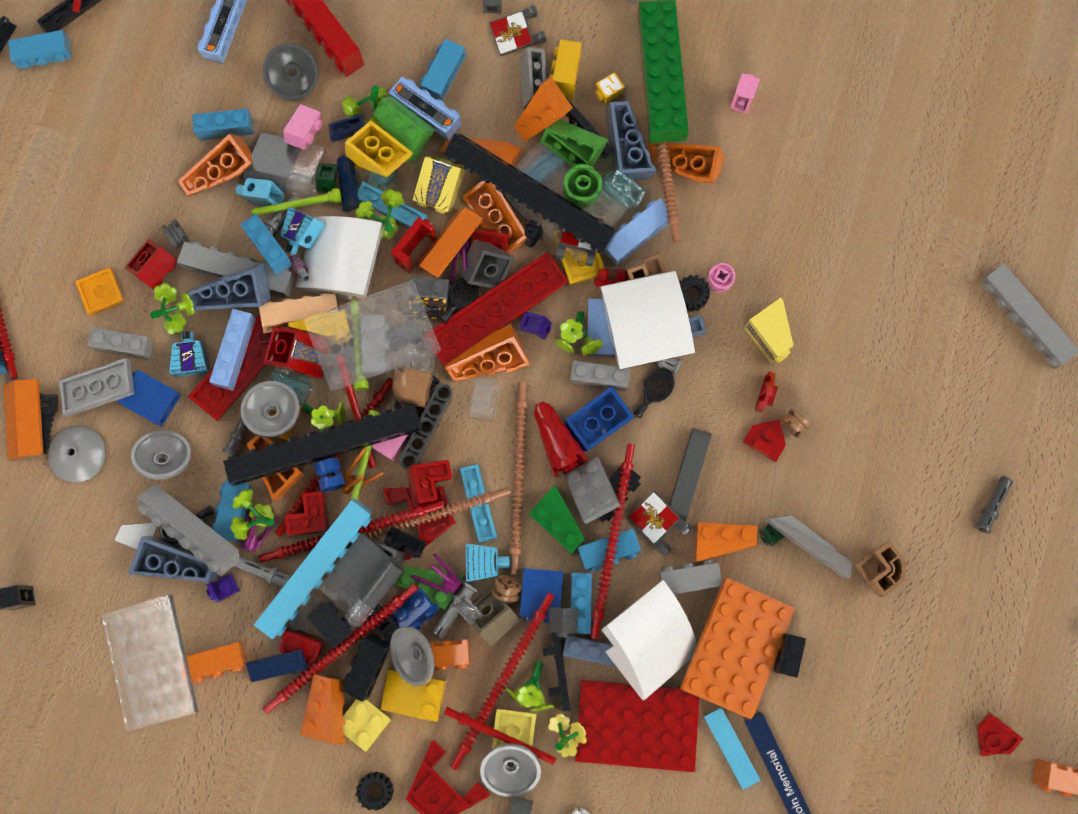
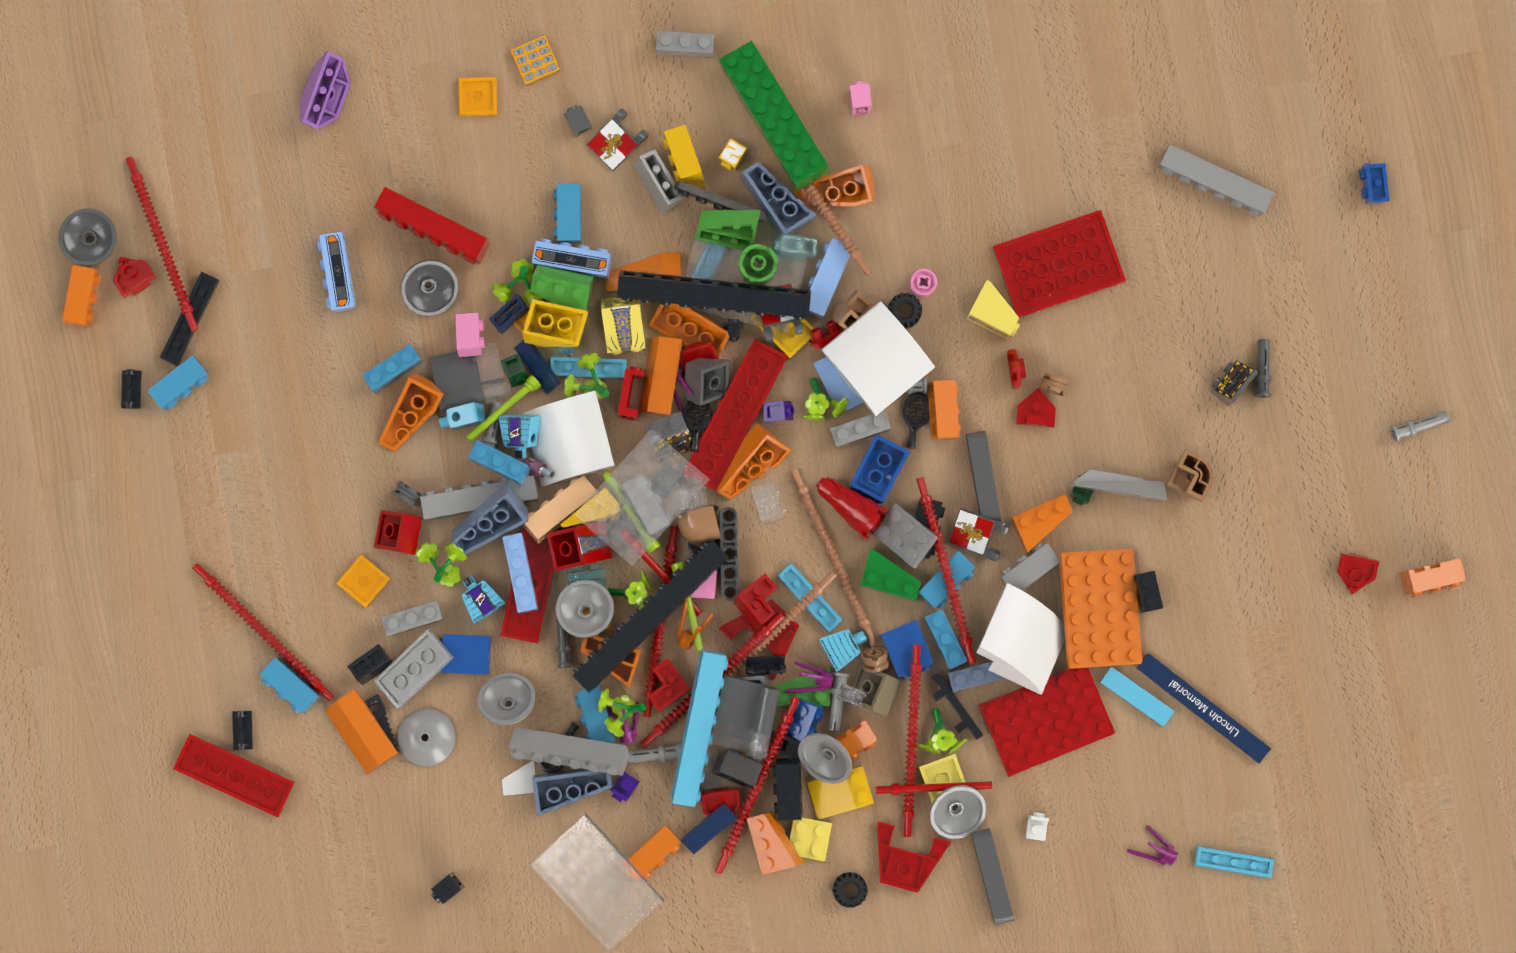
camera: 30 degrees left, 5 degrees up
(62, 364) = (370, 664): none -> black hinge
(328, 468) = (661, 637): blue wheel -> none
(543, 110) = (687, 212): orange wedge -> none
(563, 621) = (939, 662): dark grey brick -> none
(566, 744) = (994, 766): light yellow plant -> none
(683, 396) = (943, 410): none -> orange brick
(697, 326) = (923, 339): sand blue plate -> none
(851, 320) = (1059, 264): none -> red plate
(961, 503) = (1233, 383): none -> slope

